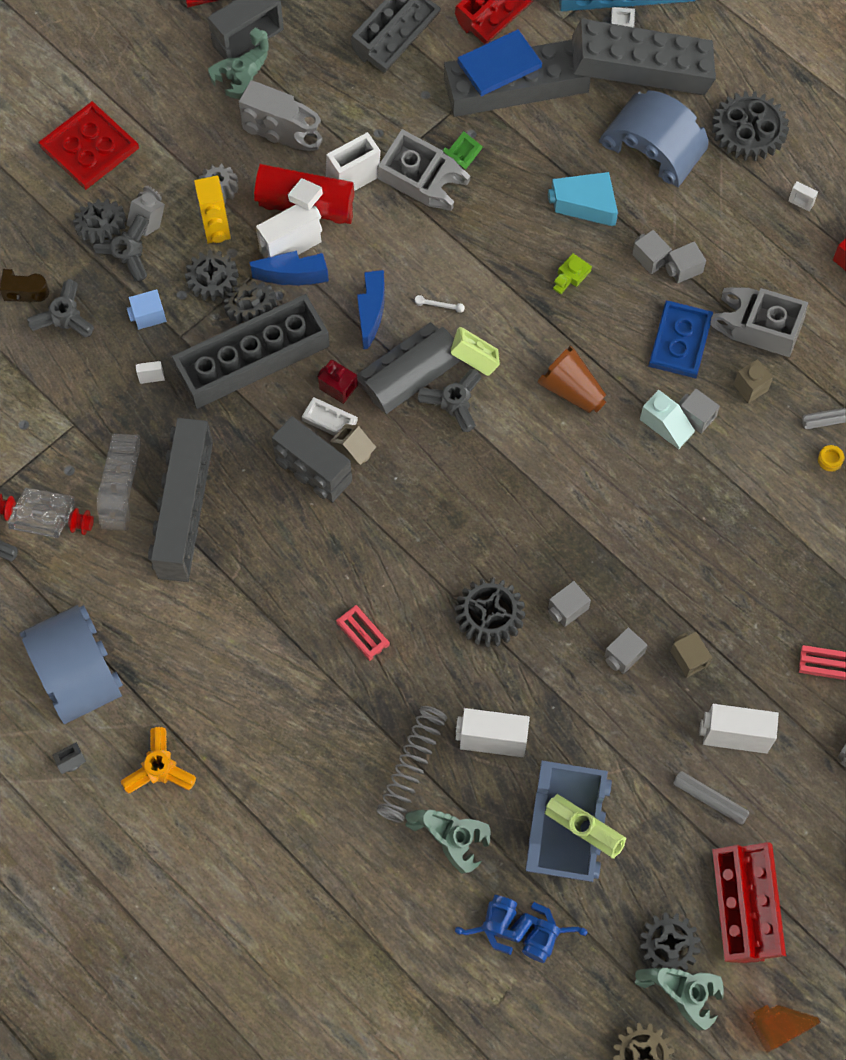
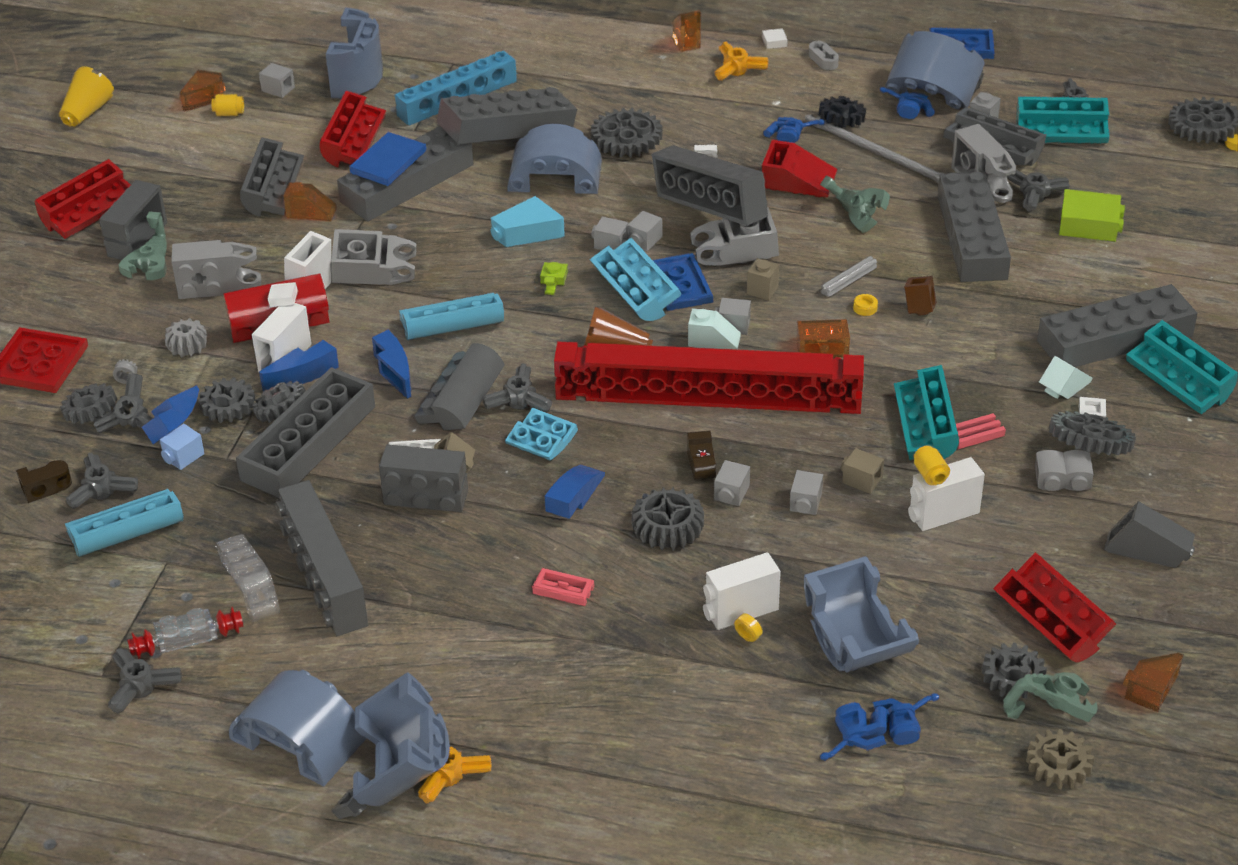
camera: 30 degrees left, 25 degrees down
(58, 368) = (124, 522): none -> medium azure brick
(131, 741) = (407, 740): none -> sand blue cylinder
(148, 207) = (129, 367): light grey brick -> none
(150, 372) = (218, 488): white tile -> none
(156, 271) = (171, 414): none -> blue slope
(212, 209) = (199, 344): yellow brick -> none
(337, 381) = (402, 421): dark red brick -> none
(382, 809) = (680, 619): light grey piece -> none
(410, 72) = (308, 203): none -> clear orange slope
(419, 301) = (433, 346): white hinge -> none
(433, 534) = (572, 490): none -> blue slope
(446, 456) = (542, 434): none -> medium azure slope
(451, 276) = (452, 315): none -> medium azure brick
(452, 834) = (766, 680): sand green animal -> none
(464, 150) = (398, 228): bright green bracket -> none
(475, 351) = (513, 353): yellowish green slope -> none
(479, 767) = (748, 627): none -> yellow tile
(563, 558) = (701, 454): none -> dark brown leg
(597, 834) = (891, 609): yellowish green piece -> none
(624, 478) = (709, 377): none -> red brick
(637, 321) = (636, 279): none -> medium azure brick
(711, 797) = (960, 559): light grey axle -> none
(729, 708) = (931, 465): none -> yellow brick
(760, 481) = (823, 337): none -> clear orange brick
(768, 250) = (710, 184): none -> dark grey brick
(790, 623) = (927, 412): none -> teal brick

